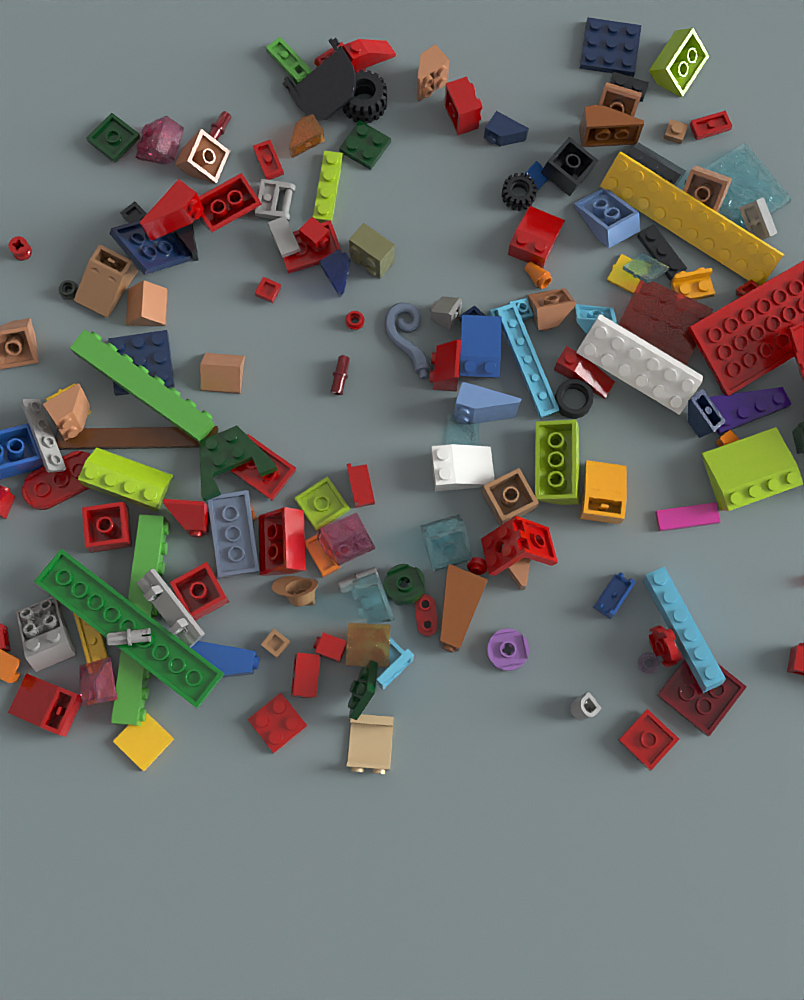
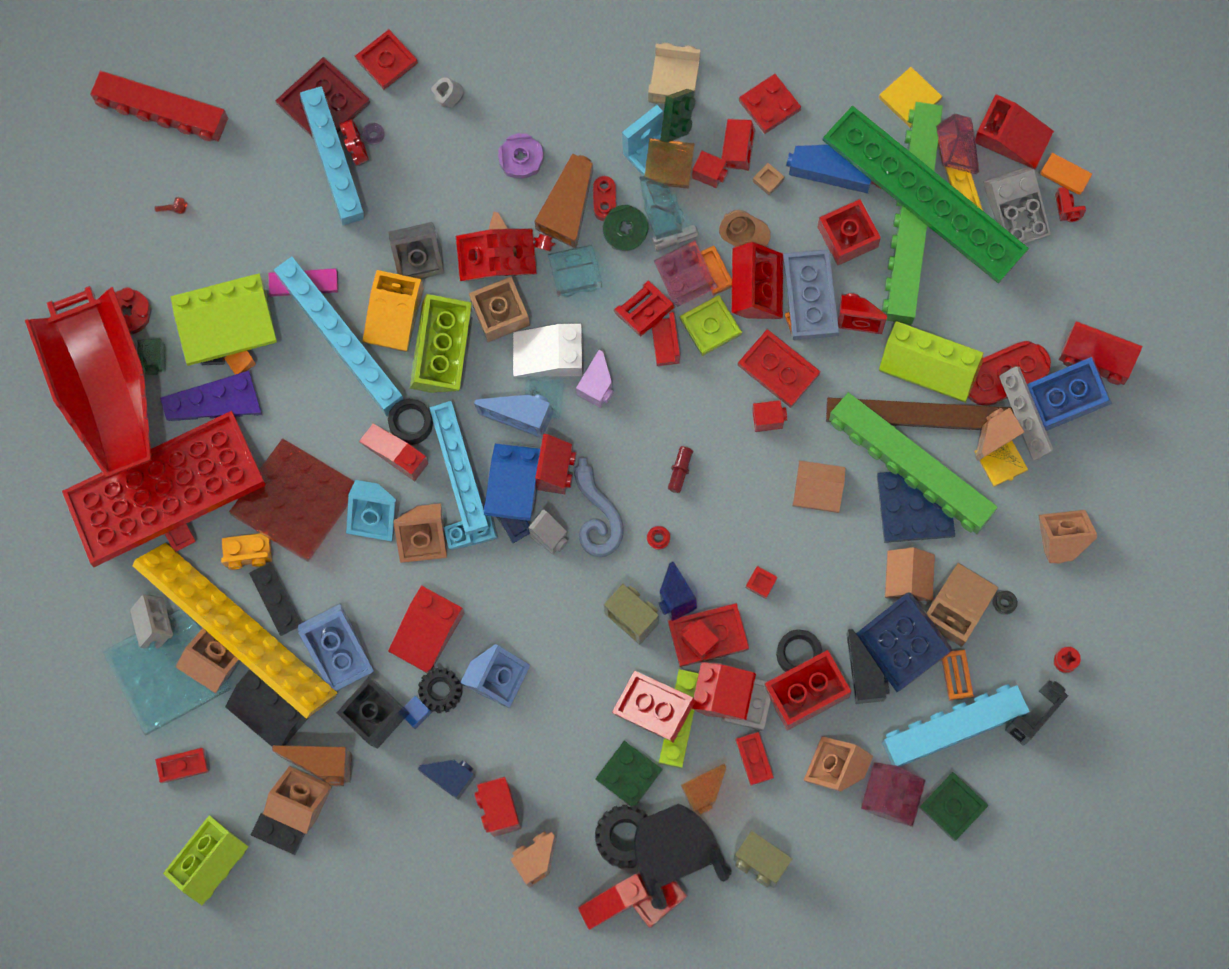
camera: 170 degrees left, 0 degrees up
(41, 195) = (1023, 731): none -> black panel
(106, 218) = (960, 695): none -> orange tile
(106, 527) = (951, 308): red brick -> none
(110, 192) = (955, 726): none -> medium azure brick
(128, 637) = (922, 176): light grey axle -> none
(133, 213) = (925, 694): black plate -> none
(170, 608) = (879, 209): light grey hinge -> none
(173, 211) = (866, 664): red slope -> none
(218, 127) = (818, 810): dark red axle -> none
(226, 452) = (816, 381): dark green wing -> none
(237, 252) = (794, 635): none -> black tyre
(258, 84) = (761, 859): none -> olive brick
(266, 424) = (768, 415): none -> red brick
(283, 236) = (738, 643): light grey tile -> none
(288, 60) = (721, 905): bright green plate -> none
(294, 199) = (723, 691): none -> red slope
(348, 186) = (654, 706): none -> plate
(377, 506) = (647, 313): none -> red plate
(417, 442) = (596, 382): none -> lavender slope
(477, 200) = (496, 675): none -> medium blue slope
(538, 275) = (431, 577): orange cone -> none
(592, 549) = (416, 251): none -> flat silver slope
(610, 46) = (291, 896): dark blue plate -> none
(614, 595) = (398, 202): blue hinge -> none
(622, 278) = (320, 574): yellow piece -> none
(640, 364) = (330, 443): white brick -> none
(645, 268) = (300, 572): clear light blue piece -> none
(648, 464) = (338, 335): none -> medium azure brick
(675, 131) = (228, 763): medium nougat plate -> none
(703, 414) = (264, 381): dark blue slope -> none

